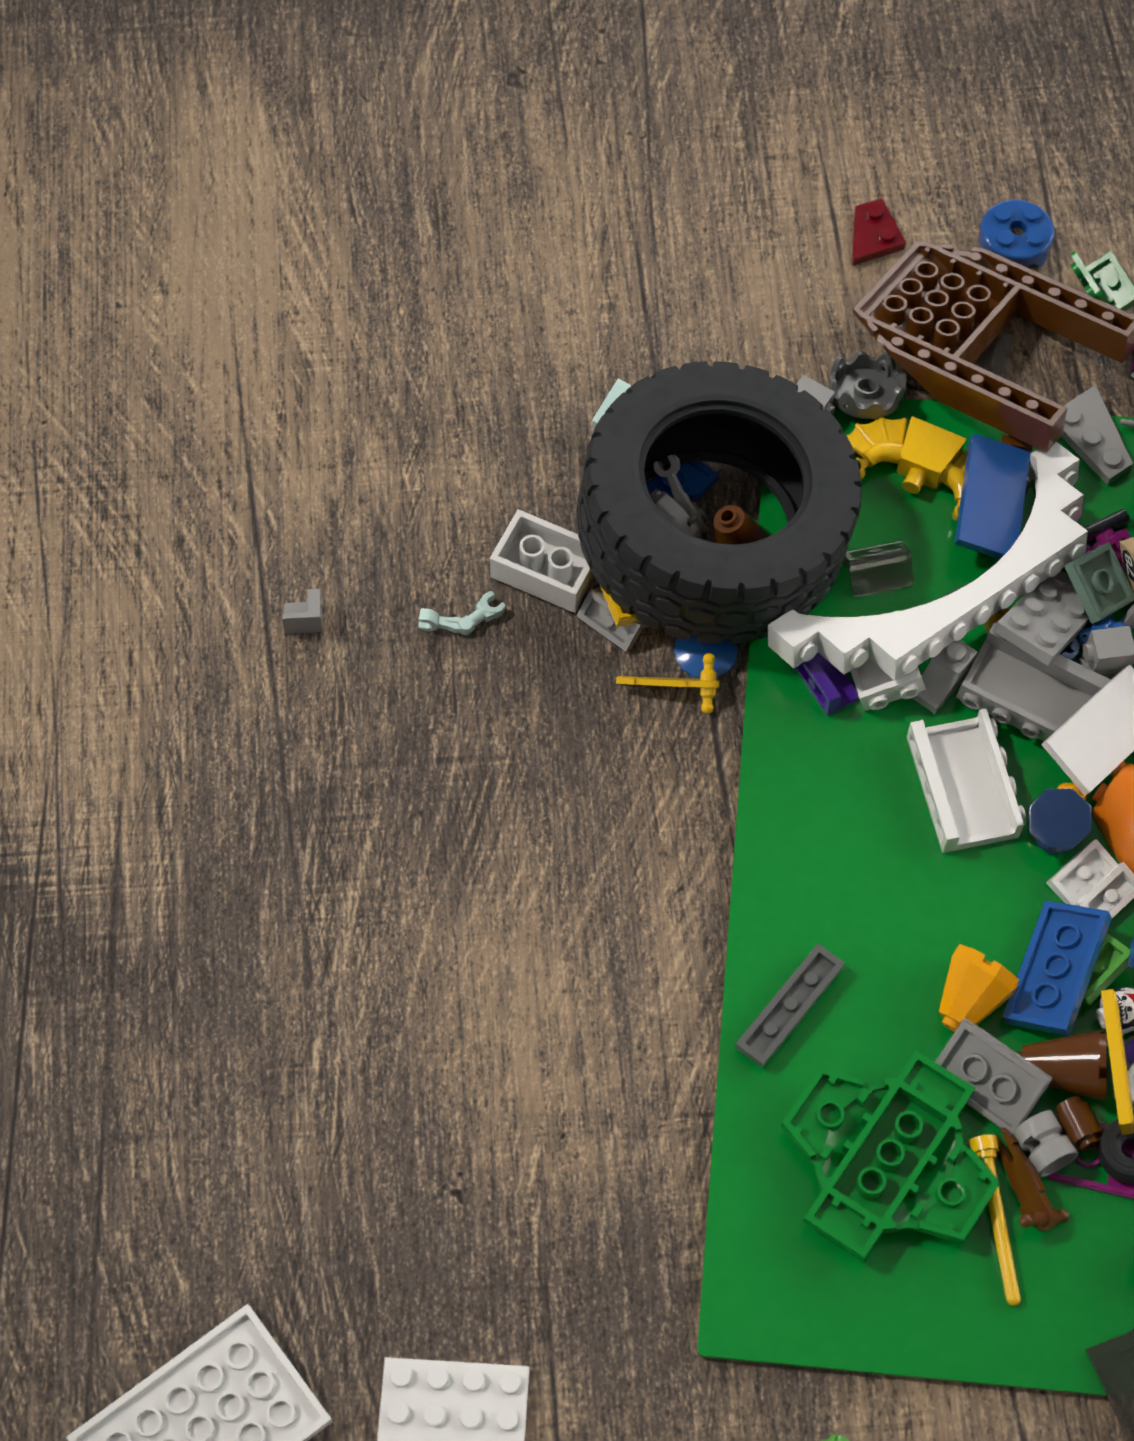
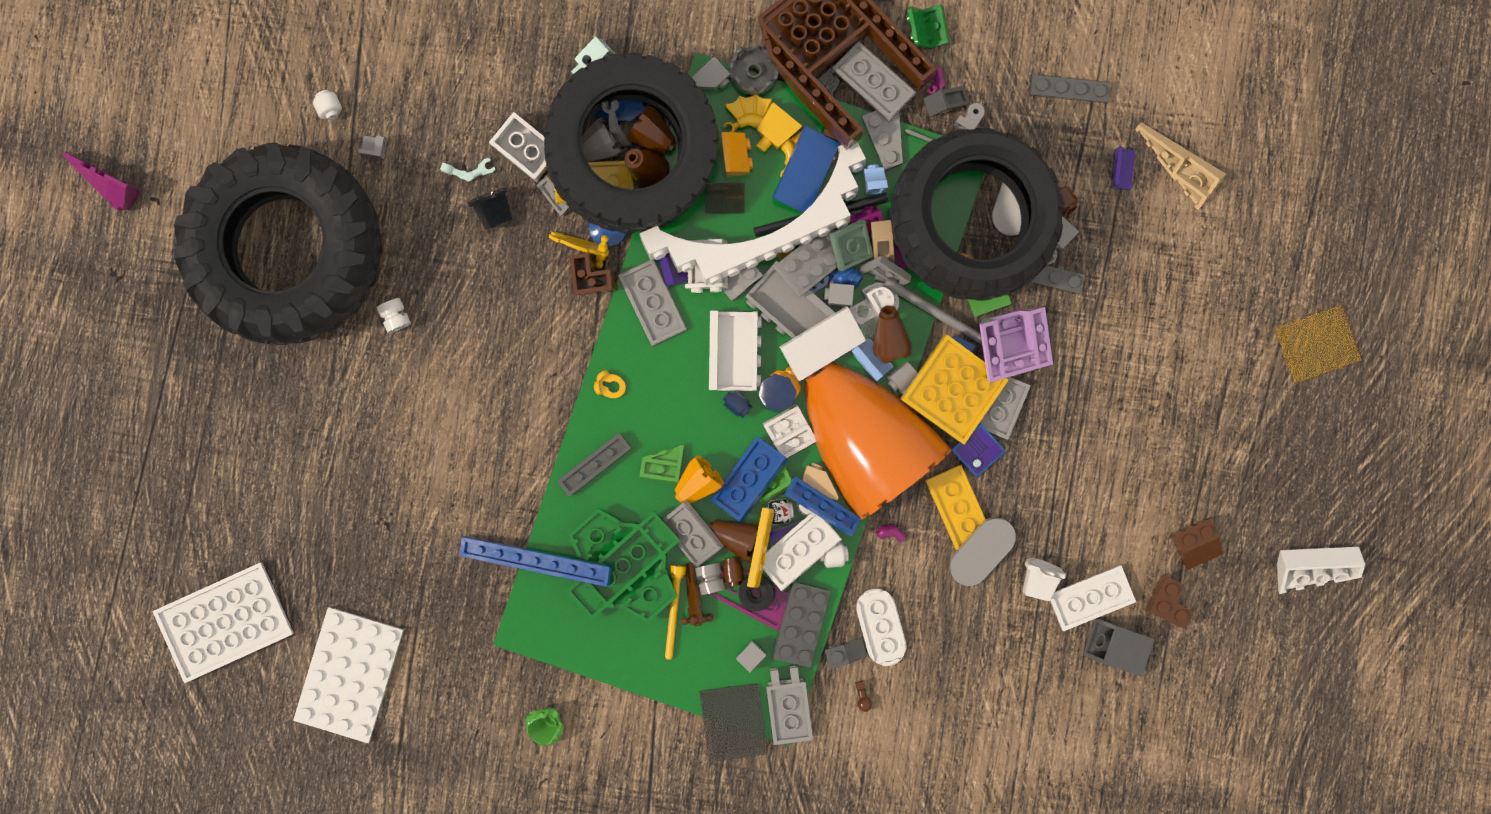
camera: 15 degrees right, 25 degrees up
(165, 666) = (210, 234): none -> black tyre
(218, 569) = (327, 105): none -> white head
(391, 844) = (393, 314): none -> white wheel
(515, 653) = (491, 208): none -> black container
(703, 726) = (587, 279): none -> reddish brown brick
(738, 1180) = (536, 561): none -> plate
(742, 489) = (652, 133): none -> reddish brown cone
(766, 865) = (605, 376): none -> yellow piece
(811, 740) = (652, 302): none -> light grey tile
(881, 509) = (735, 154): none -> light orange slope
(905, 982) = (663, 465): none -> bright green wing
(996, 857) = (737, 403): none -> dark blue brick
(1050, 366) = (873, 81): none -> light grey tile
(1103, 492) = (874, 180): none -> light blue arch

